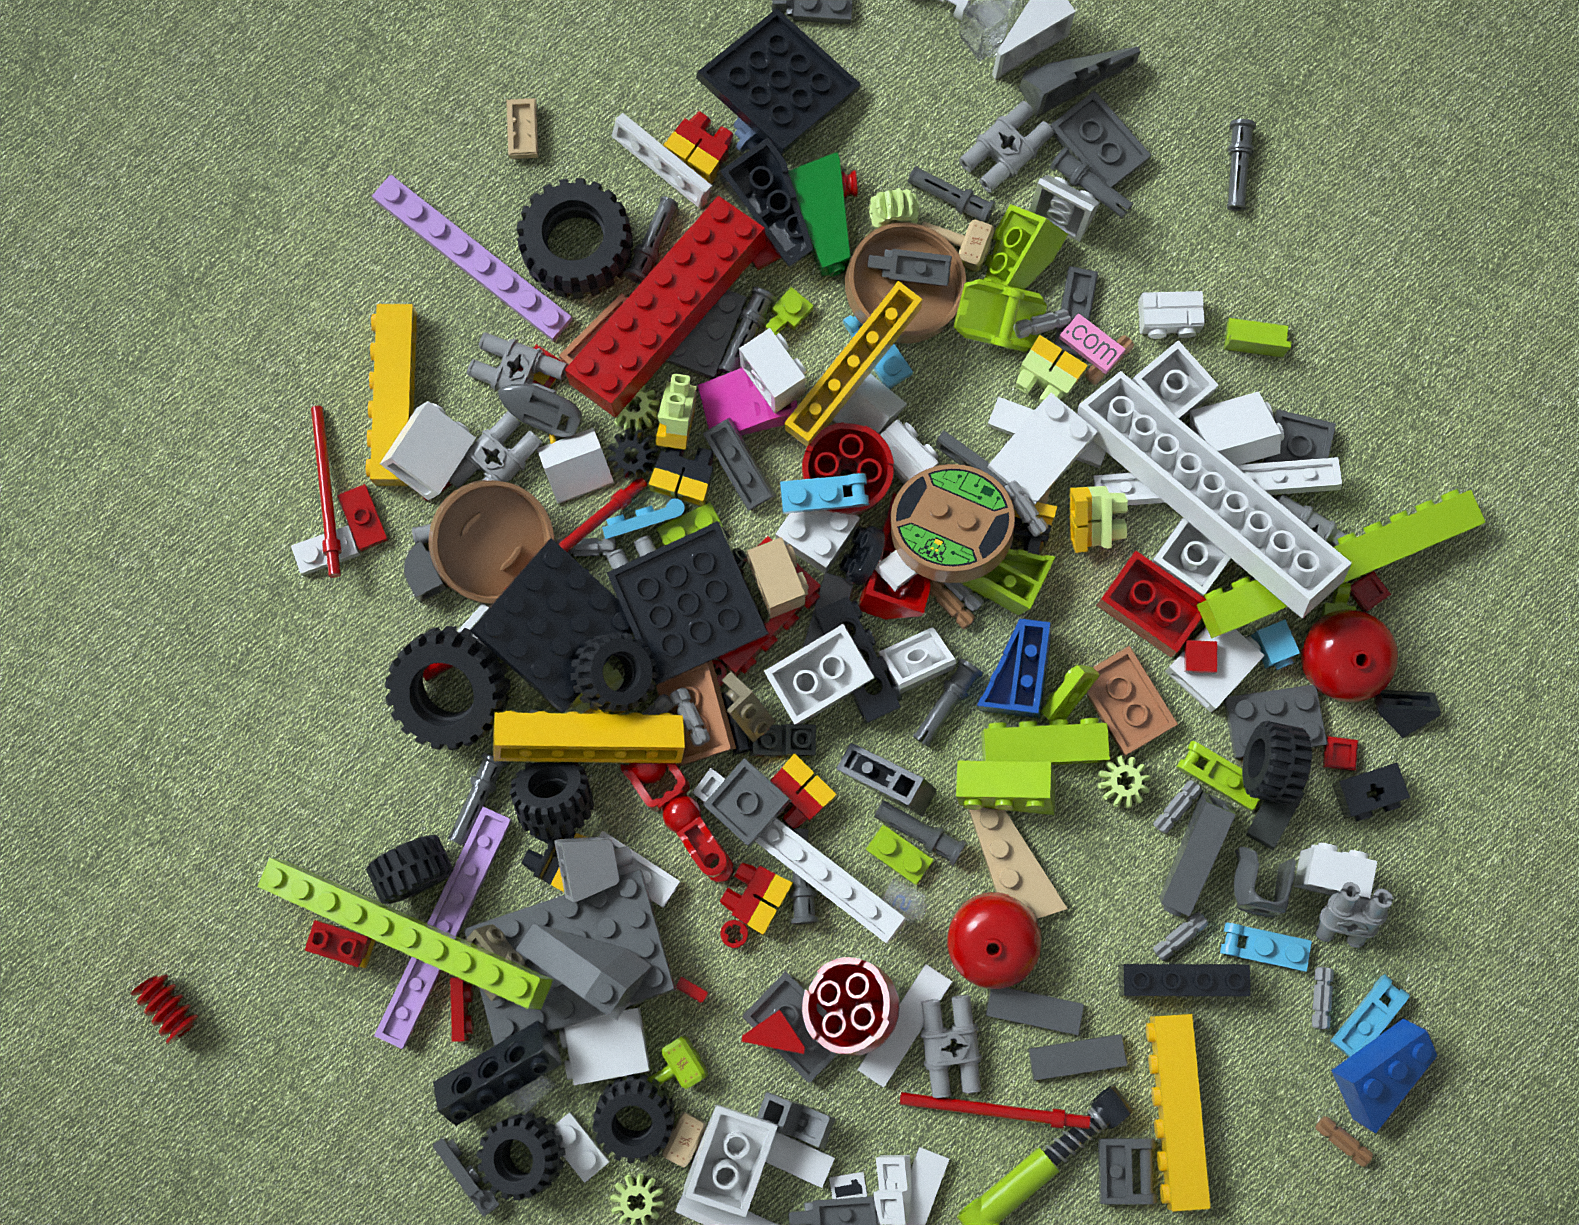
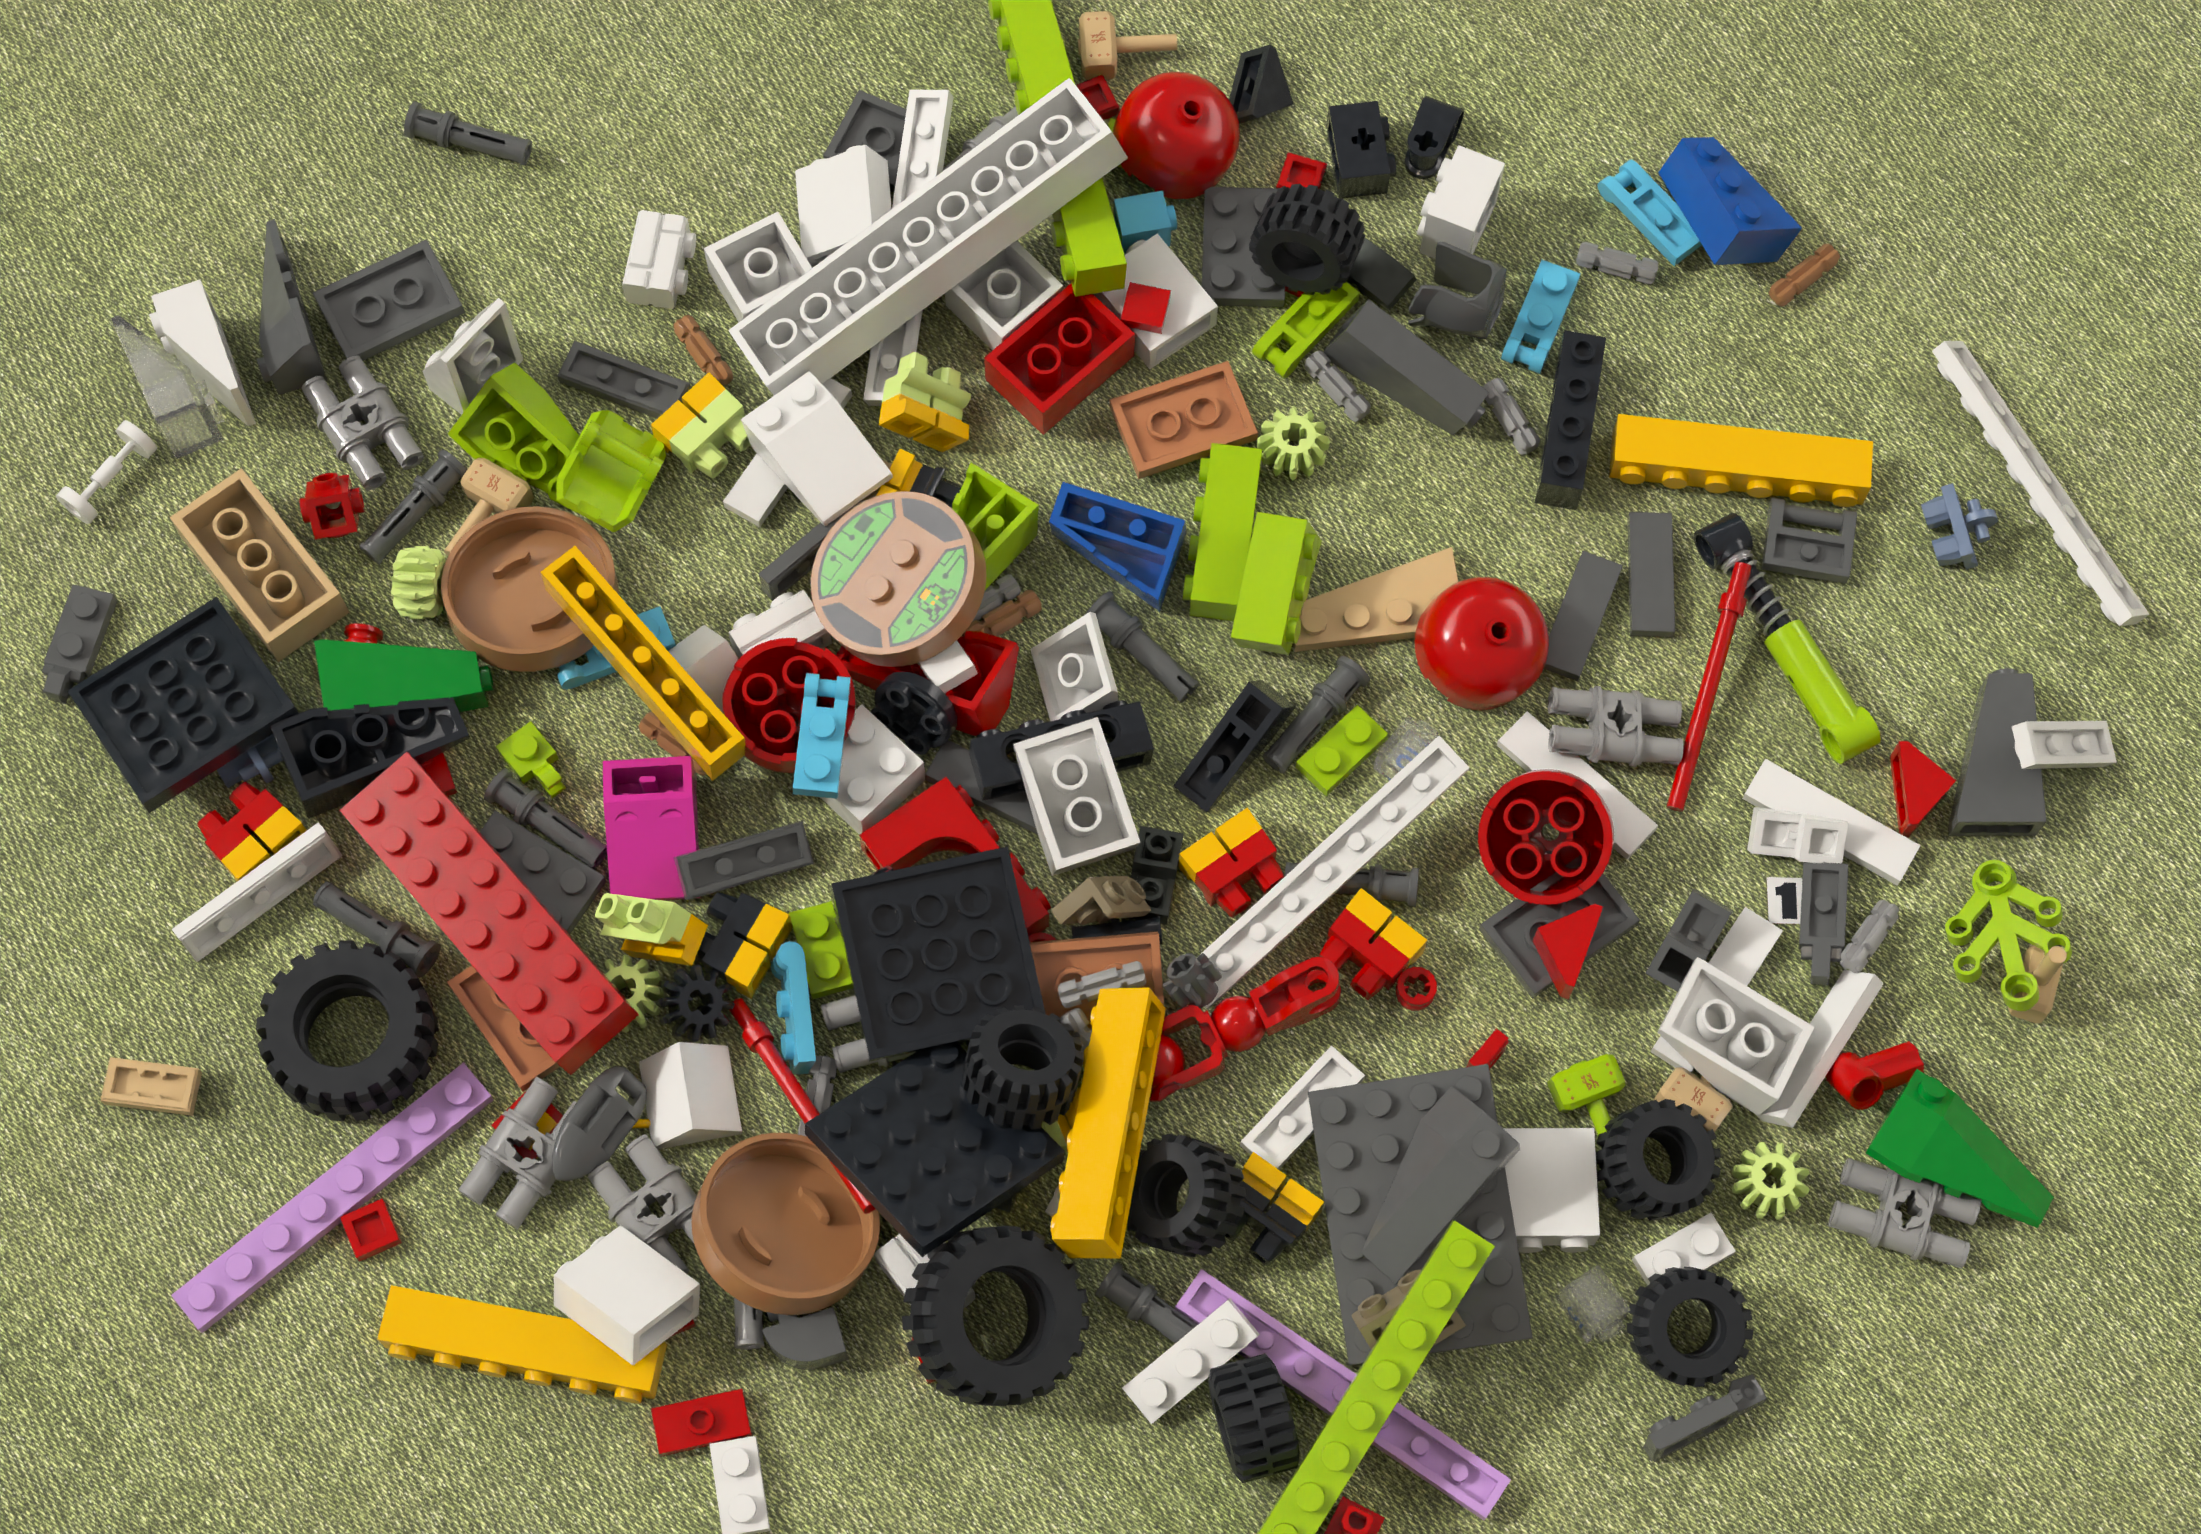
camera: 80 degrees left, 10 degrees down
(331, 545) = (739, 1467): red bar -> none
(446, 822) = (1190, 1361): none -> white plate
(453, 285) = (370, 1230): none -> red tile
(461, 1022) = (1485, 1388): red plate -> none
(496, 1073) = (1562, 1361): black brick -> none
(589, 865) = (1293, 1157): light grey torso -> none
(702, 777) = (1192, 980): none -> dark grey gear
(747, 802) = (1239, 924): dark grey plate -> none
(773, 369) = (629, 766): white brick -> none
(776, 576) = (929, 819): tan brick -> none
(886, 104) = (260, 565): none -> tan brick
(913, 266) = (511, 570): dark grey hinge -> none
(938, 140) = (331, 506): none -> red brick
(1025, 509) = (903, 480): light grey axle -> none
(1042, 323) = (635, 417): light grey axle -> none
(1068, 695) = (1149, 468): lime plate -> none
(1080, 174) = (432, 330): dark grey pin -> none
(1092, 343) = (678, 363): bright pink tile -> none
(1256, 337) = (716, 163): lime panel -> none
(1353, 915) = (1521, 191): light grey pin -> none
(1399, 843) = (1431, 137): none -> black piece
(1415, 588) = (1100, 46): none -> tan piece

